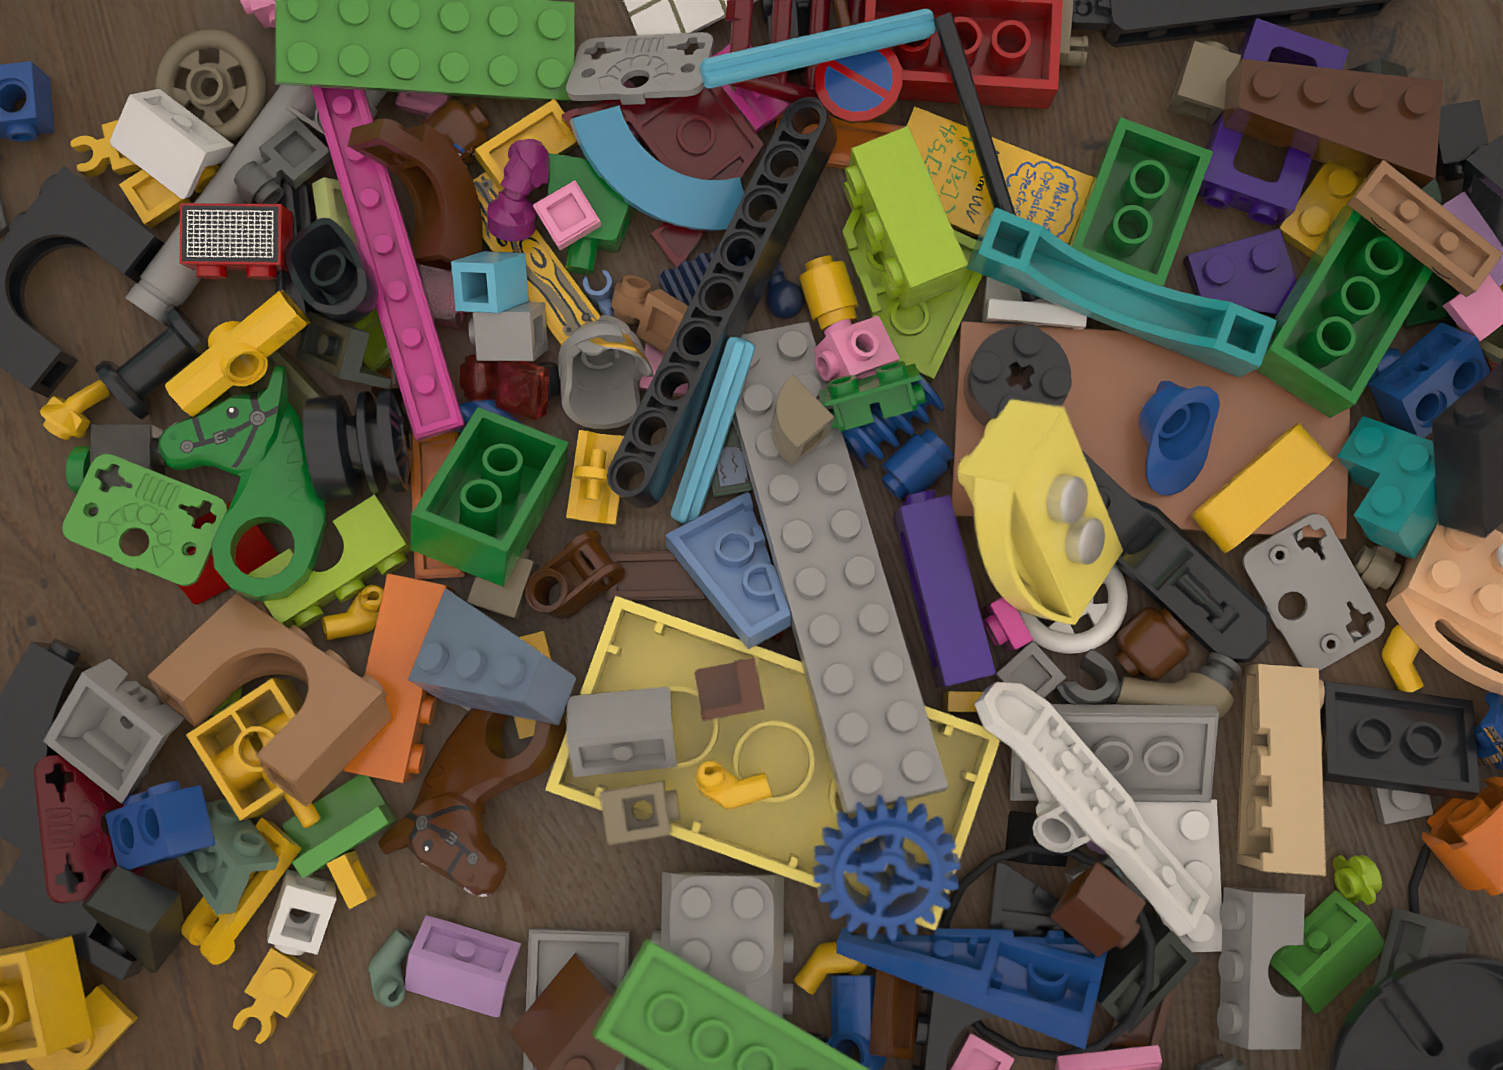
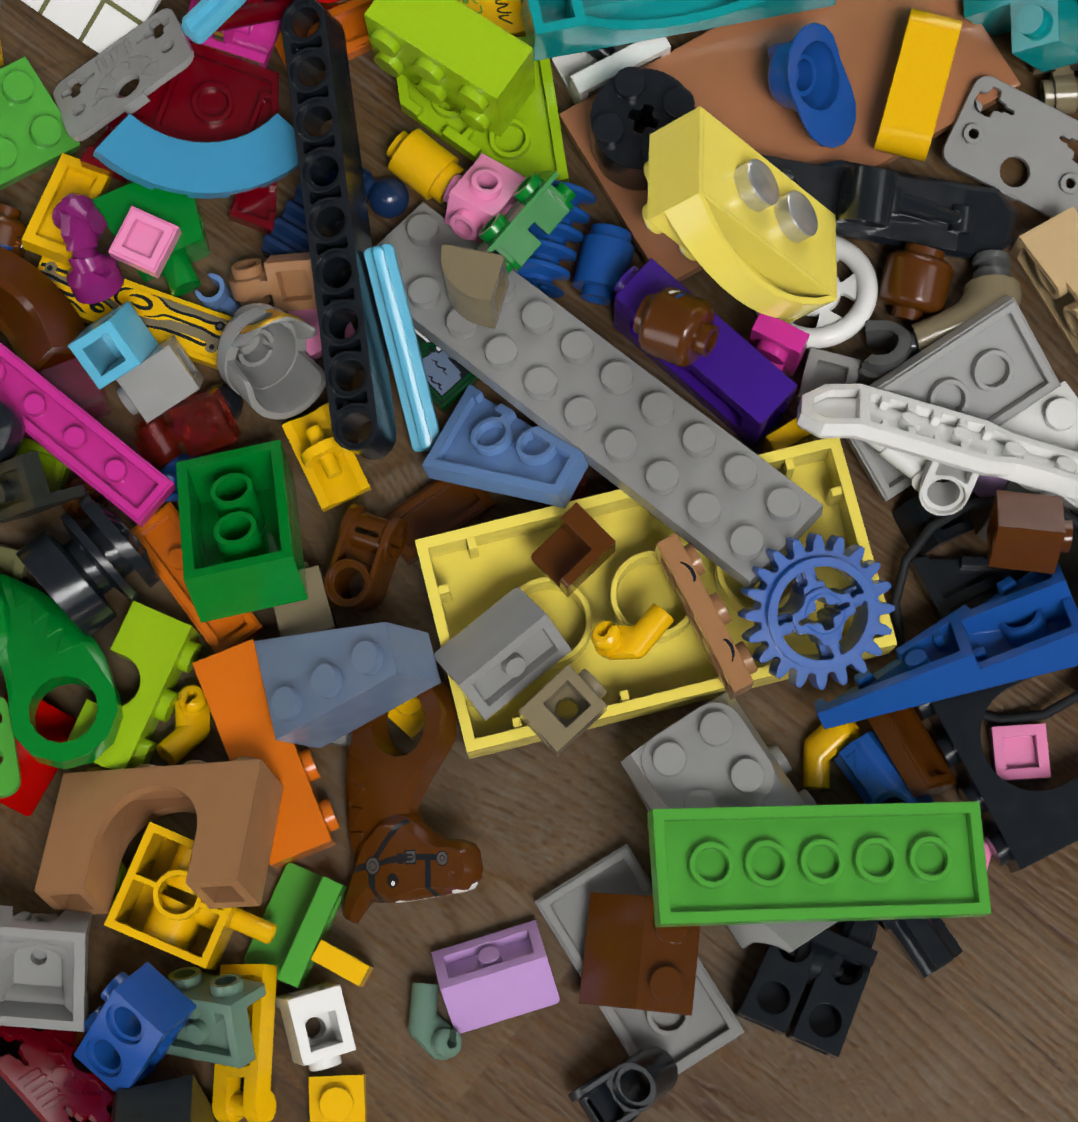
camera: 30 degrees left, 5 degrees down
(799, 813) = (706, 614): none -> medium nougat plate
(929, 566) = (676, 326): none -> reddish brown head

